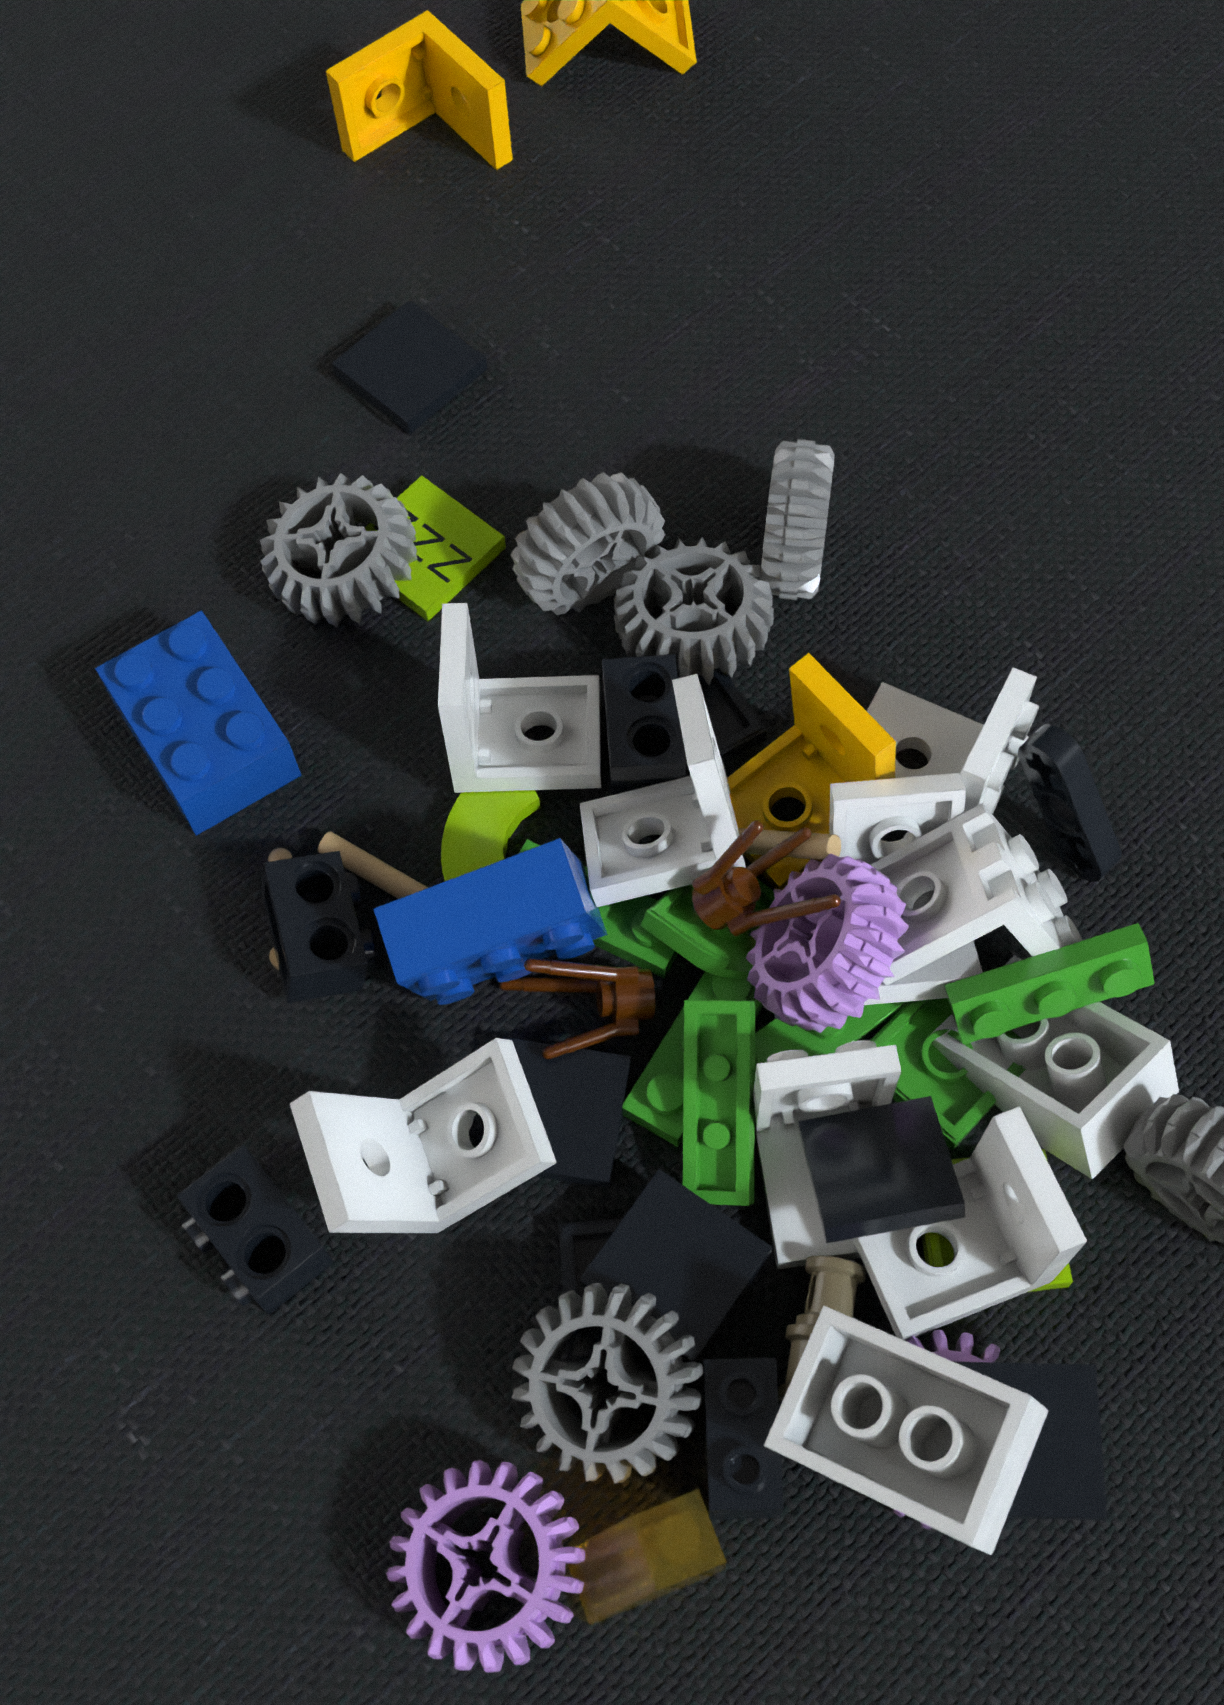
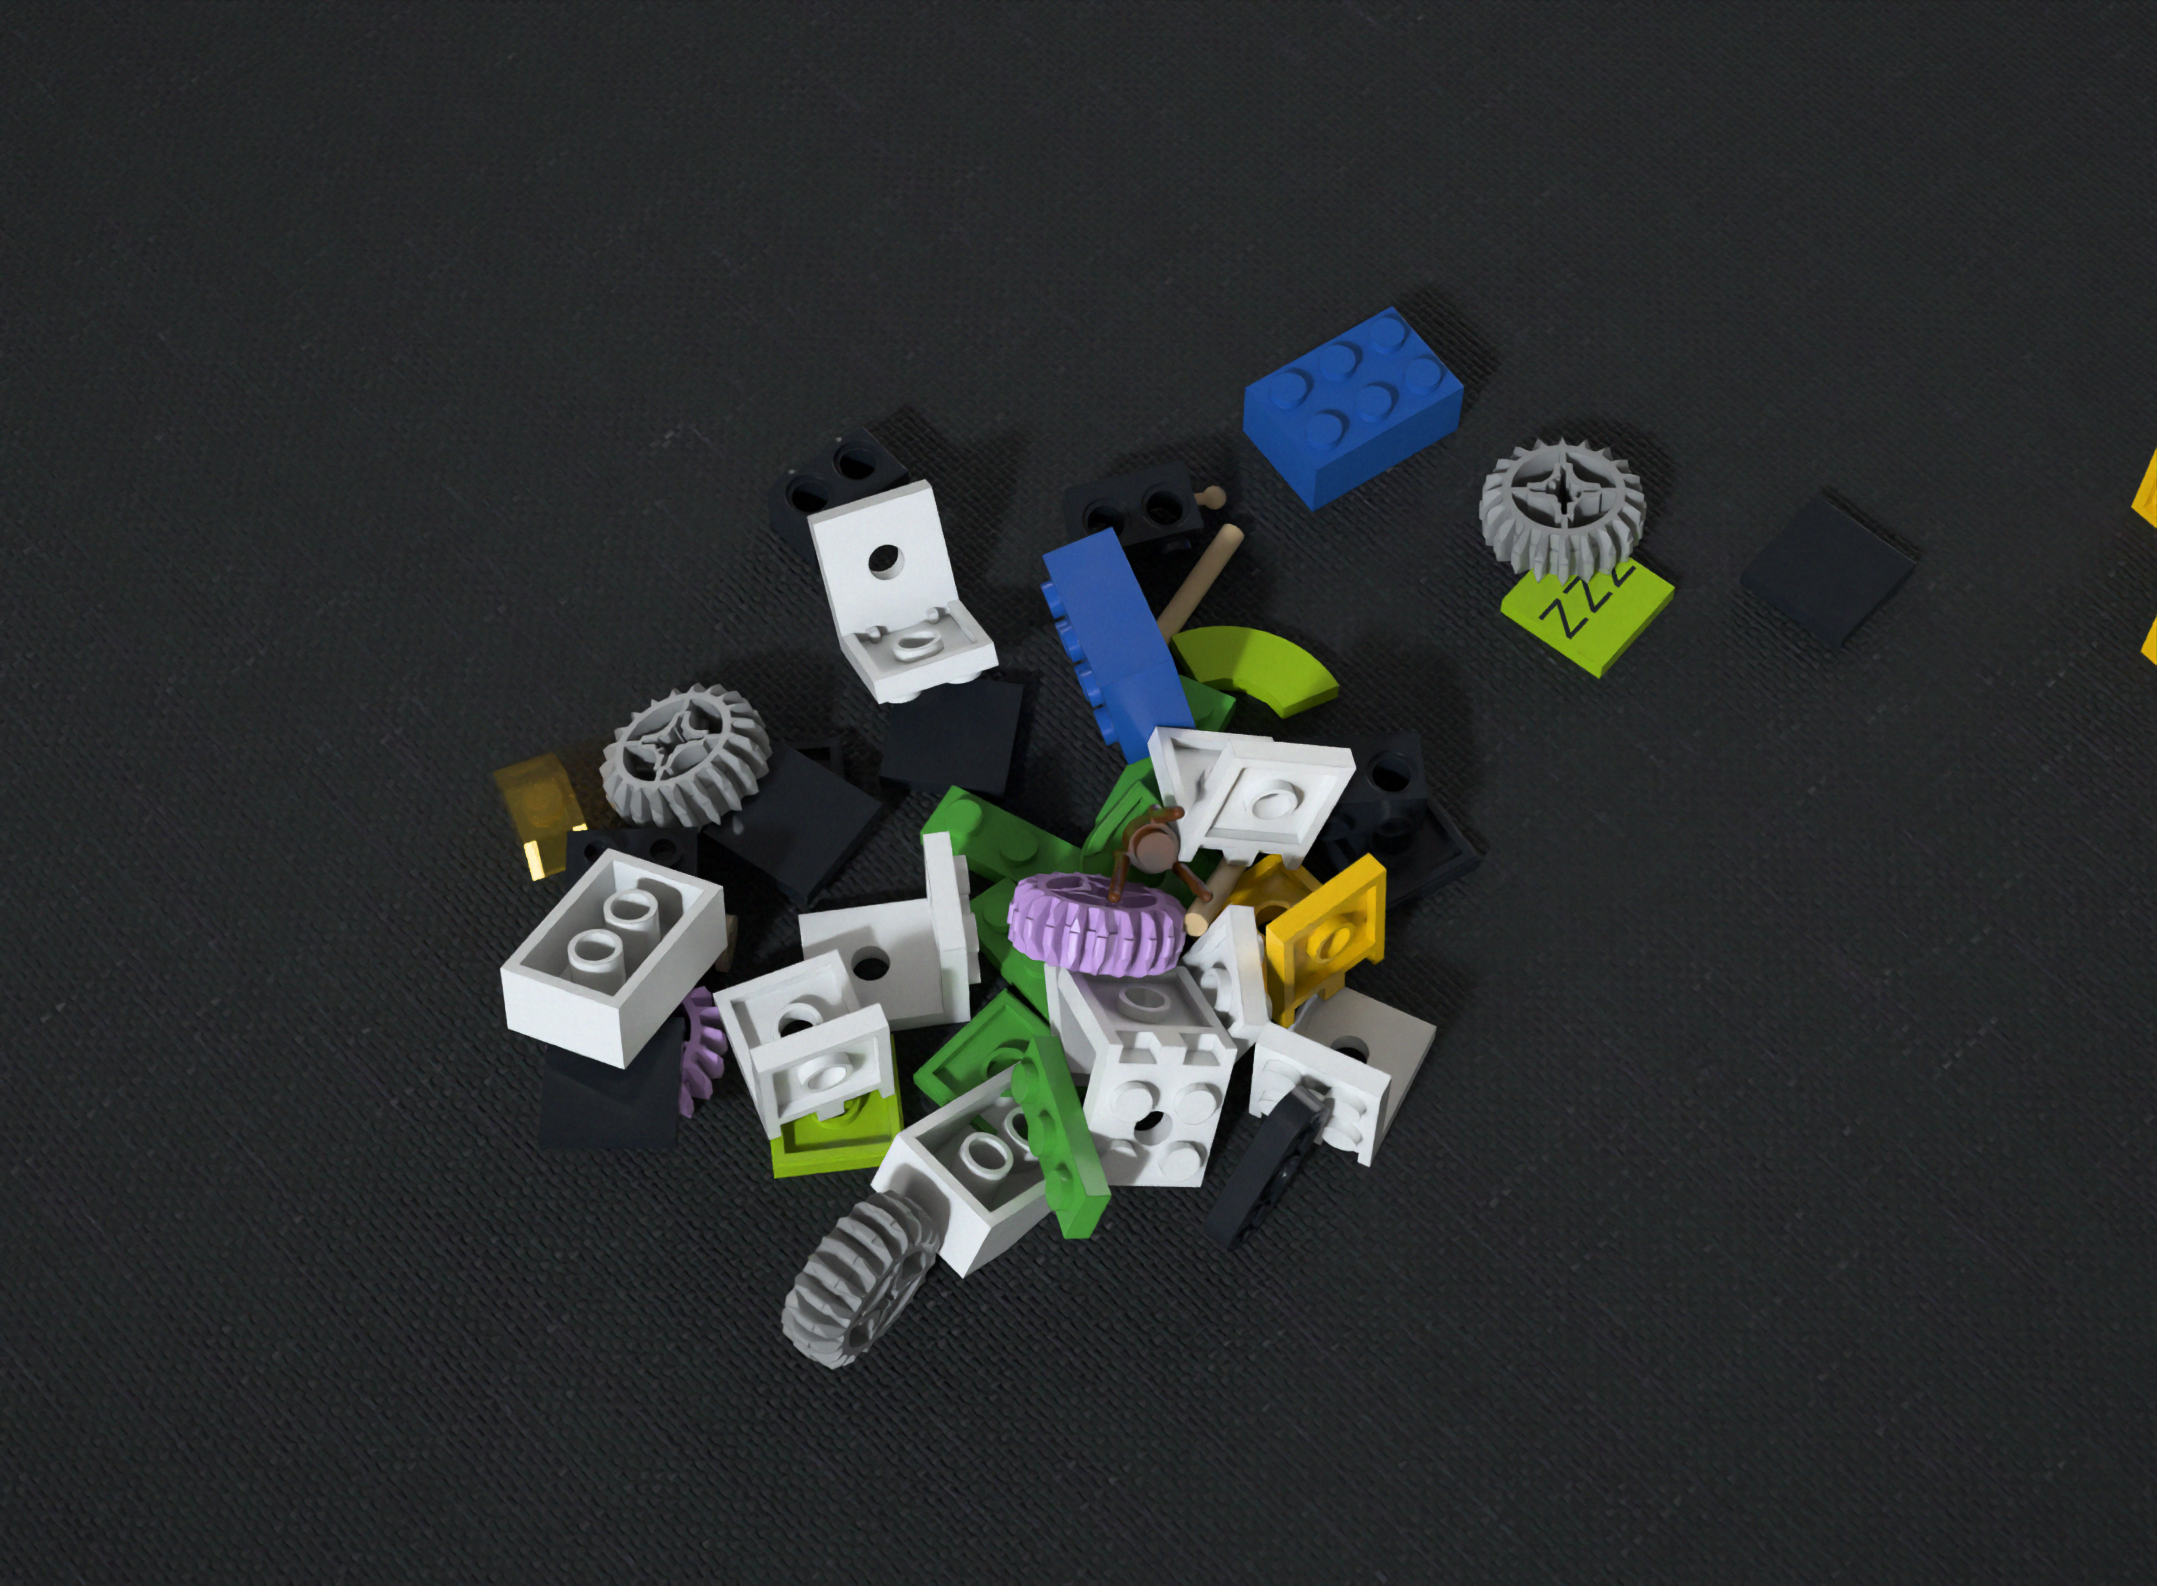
camera: 85 degrees right, 5 degrees down
(466, 1593) = (544, 698): lavender gear -> none
(488, 721) = (1359, 637): white bracket -> none
(586, 542) = (1573, 726): light grey gear -> none
(620, 992) = (1065, 776): reddish brown plant -> none
(692, 591) = (1504, 820): light grey gear -> none
(719, 1100) = (992, 842): bright green plate -> none
(797, 518) = (1620, 926): light grey gear -> none
(831, 1284) = (758, 953): dark tan bush -> none
(880, 1169) = (871, 961): black tile -> none

